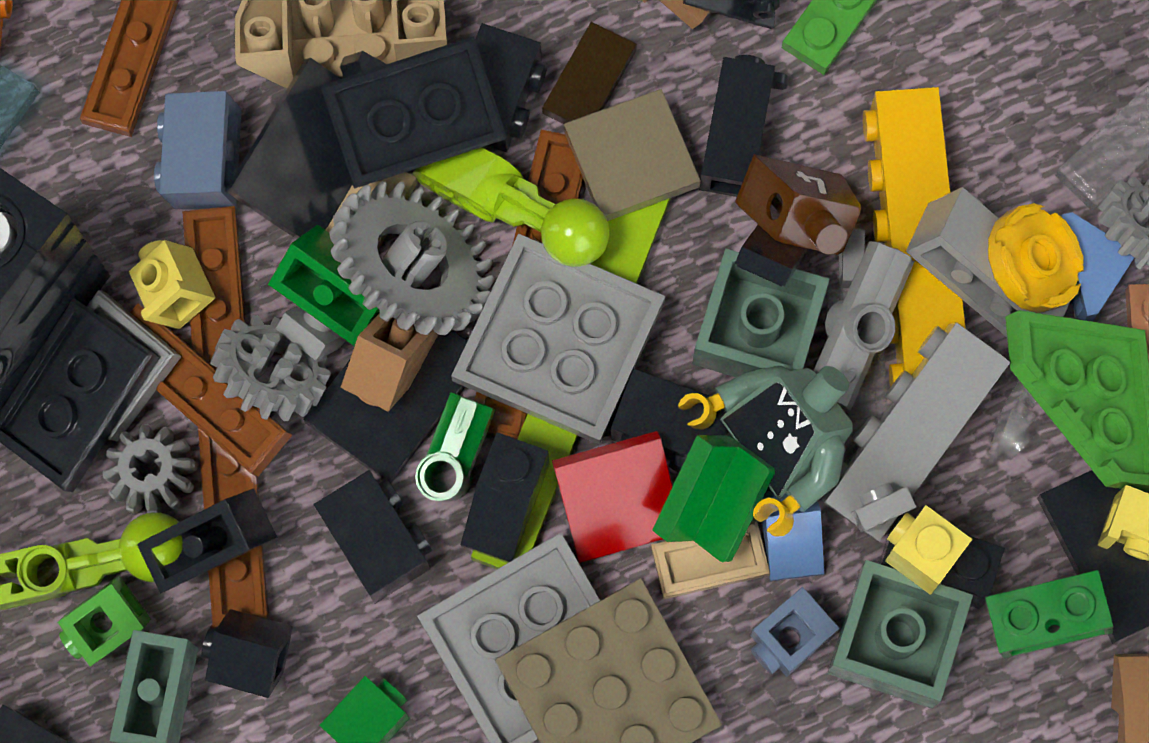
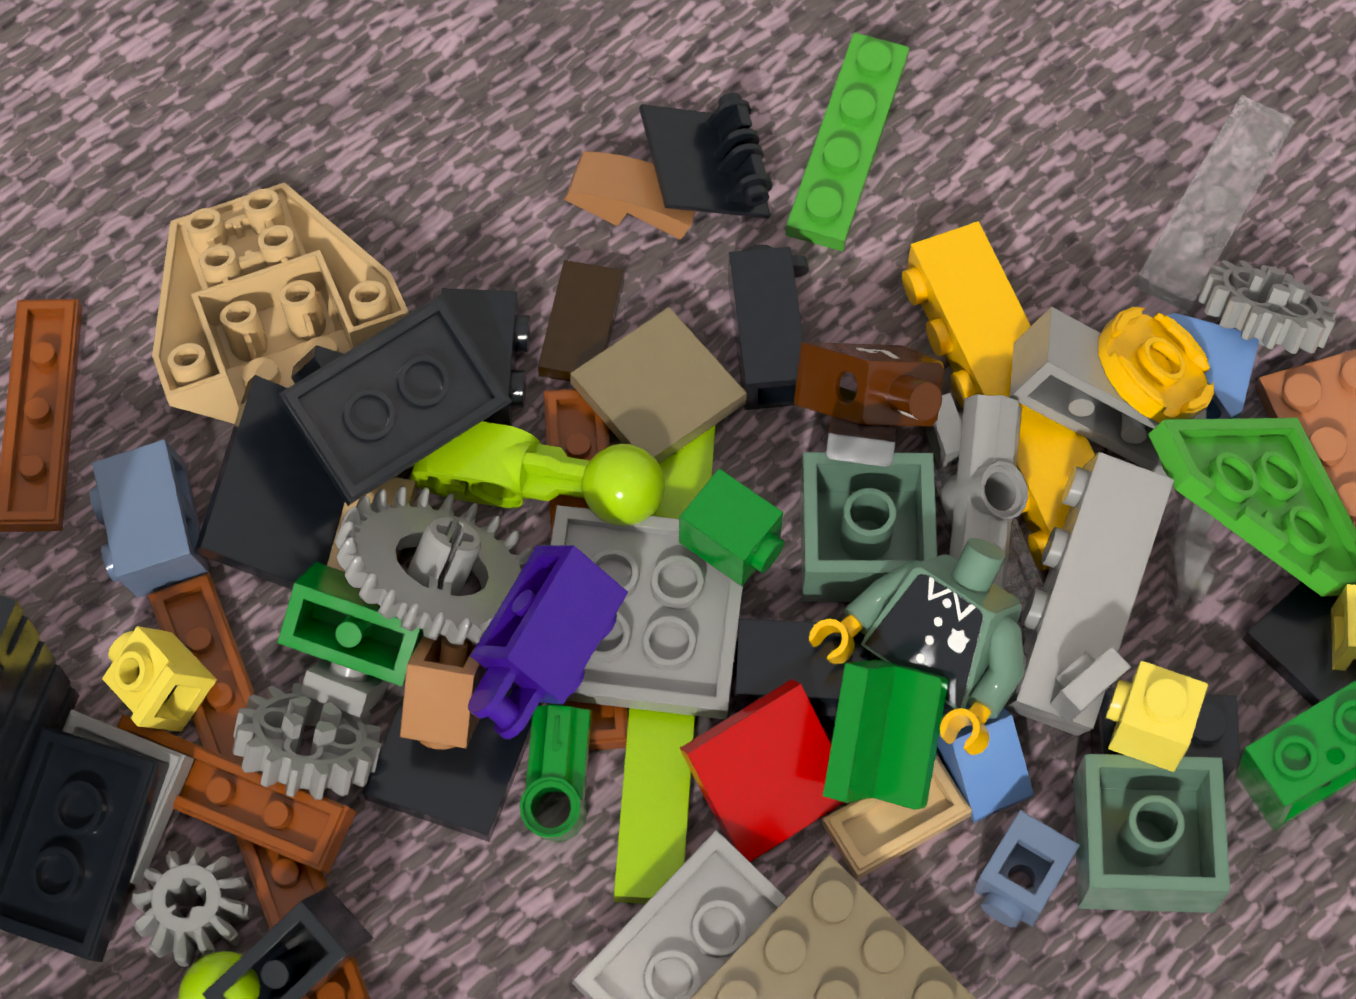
camera: 20 degrees left, 10 degrees down
(373, 536) = (490, 903): black brick -> none
(470, 343) = (543, 636): none -> dark purple brick
(505, 497) = (635, 810): black slope -> none
(647, 296) = (732, 528): none -> green brick

